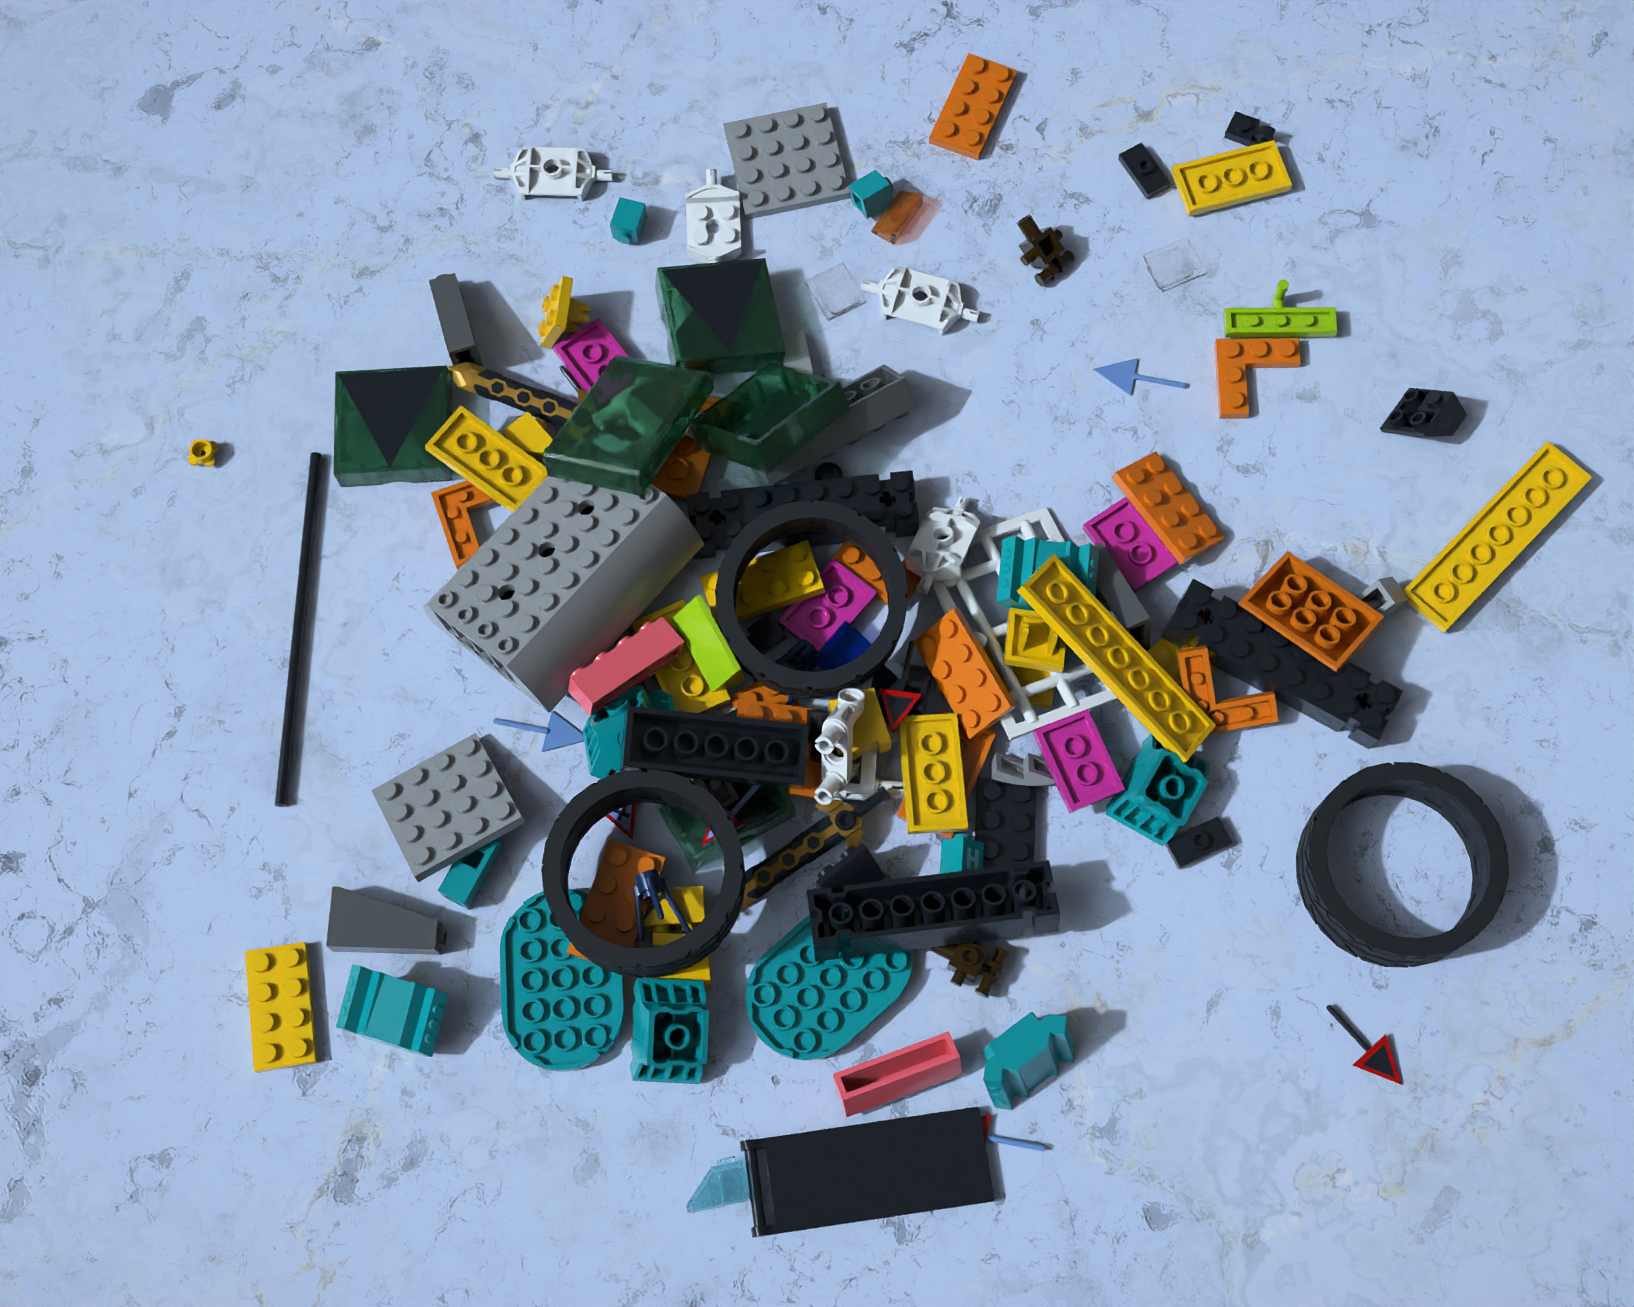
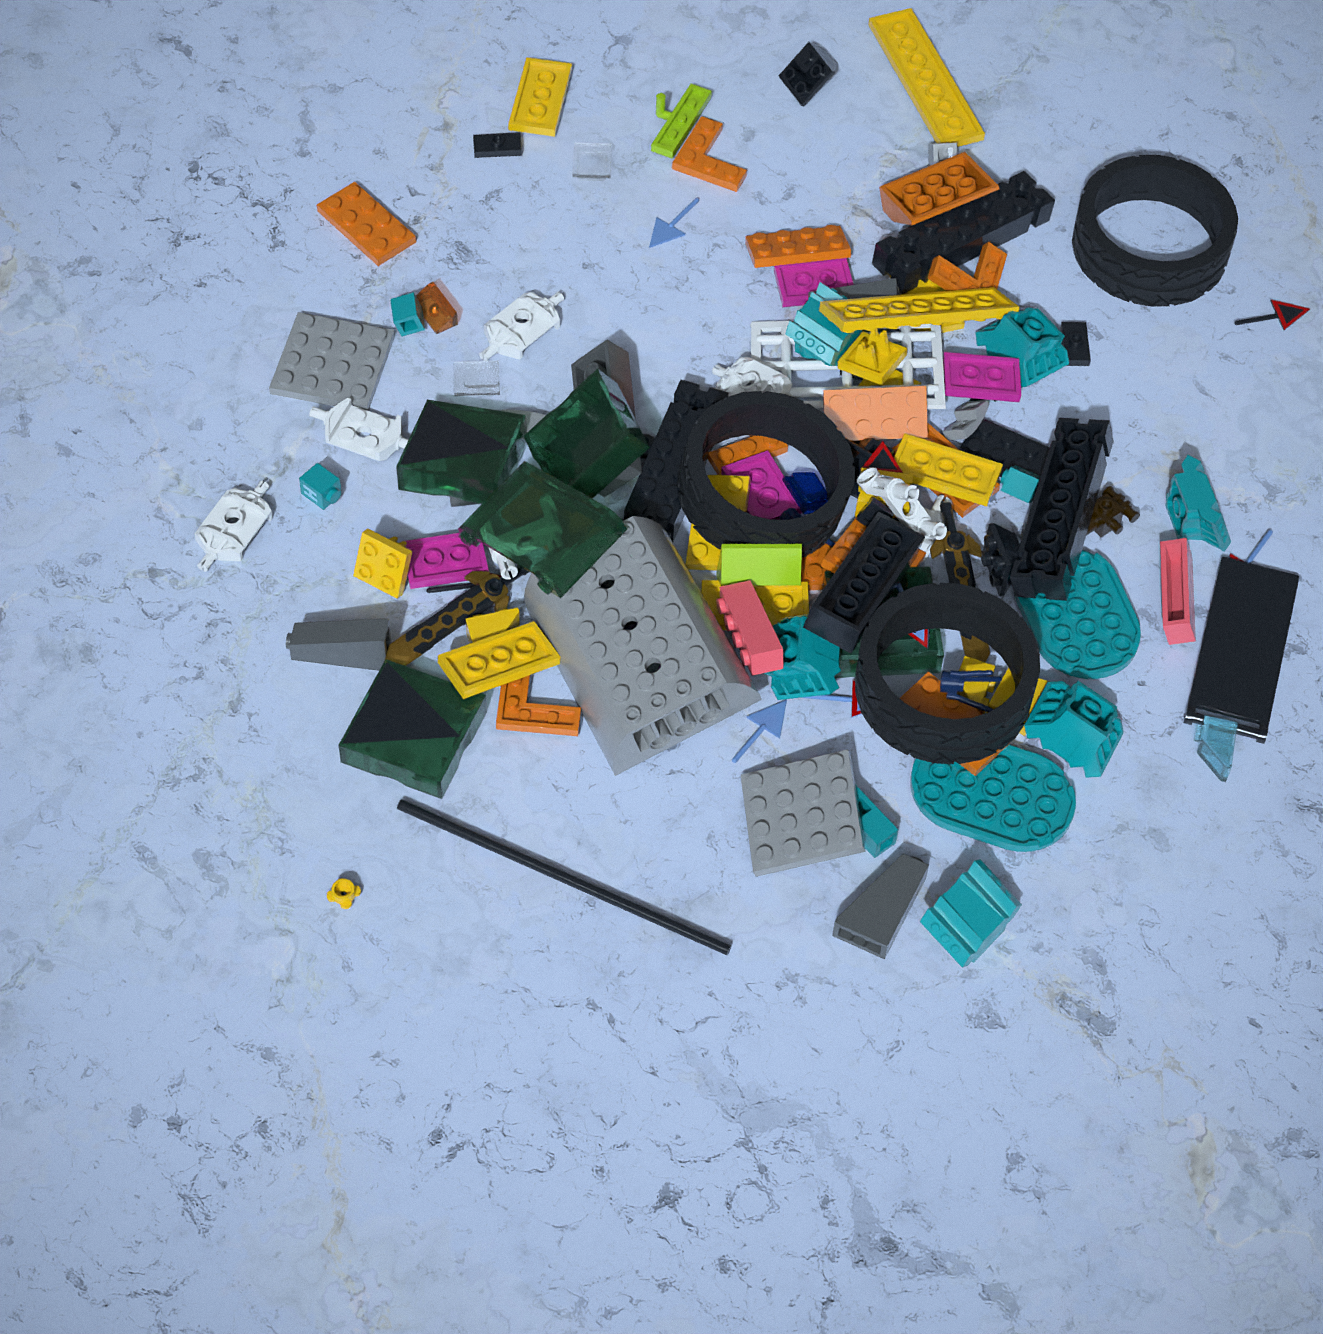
camera: 70 degrees left, 15 degrees down
(281, 1007) = (918, 1014): yellow plate -> none
(1043, 250) = (531, 228): dark brown piece -> none
(1246, 129) = (504, 73): black plate -> none

